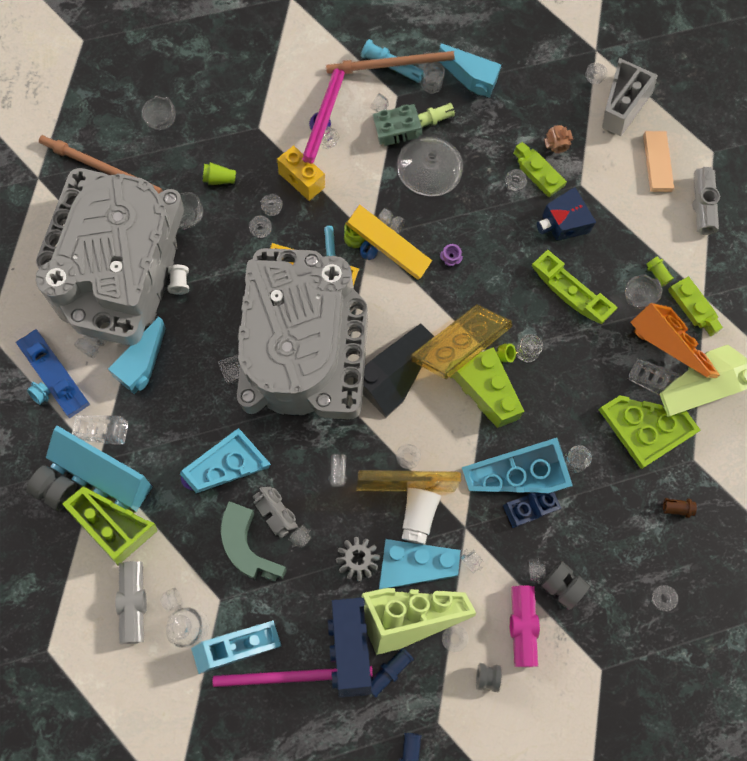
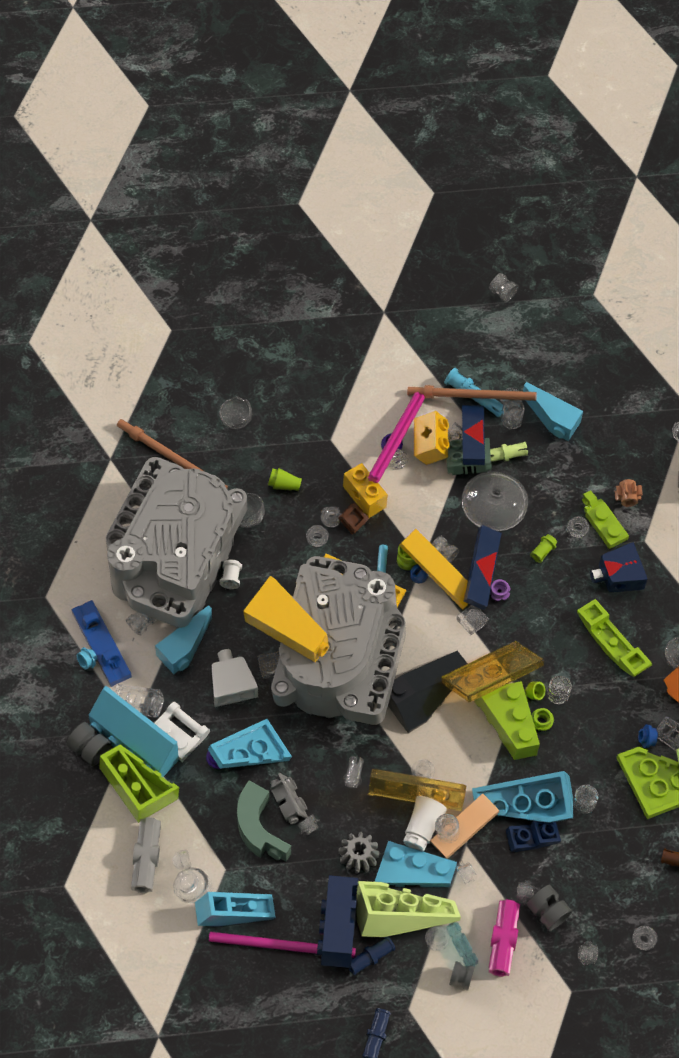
camera: 15 degrees right, 10 degrees down
(143, 462) = (185, 743): none -> white plate
(195, 391) = (232, 680): none -> white torso
(239, 325) = (286, 621): none -> yellow slope
(294, 203) = (353, 518): none -> reddish brown tile
(358, 111) = (431, 437): none -> yellow brick
(399, 103) = (473, 435): none -> dark blue tile
(430, 288) = (472, 619): none -> clear plate
(431, 235) = (482, 567): none -> dark blue tile
(446, 518) = (449, 832): none -> clear wheel
(461, 510) = (470, 822): none -> light nougat tile
(482, 641) = (462, 944): none -> clear light blue axle
(489, 201) = (545, 546): none -> lime pin
(522, 377) = (545, 714): none -> lime plate
(613, 627) = (588, 953): none -> clear plate
(626, 382) = (648, 736): none -> blue plate

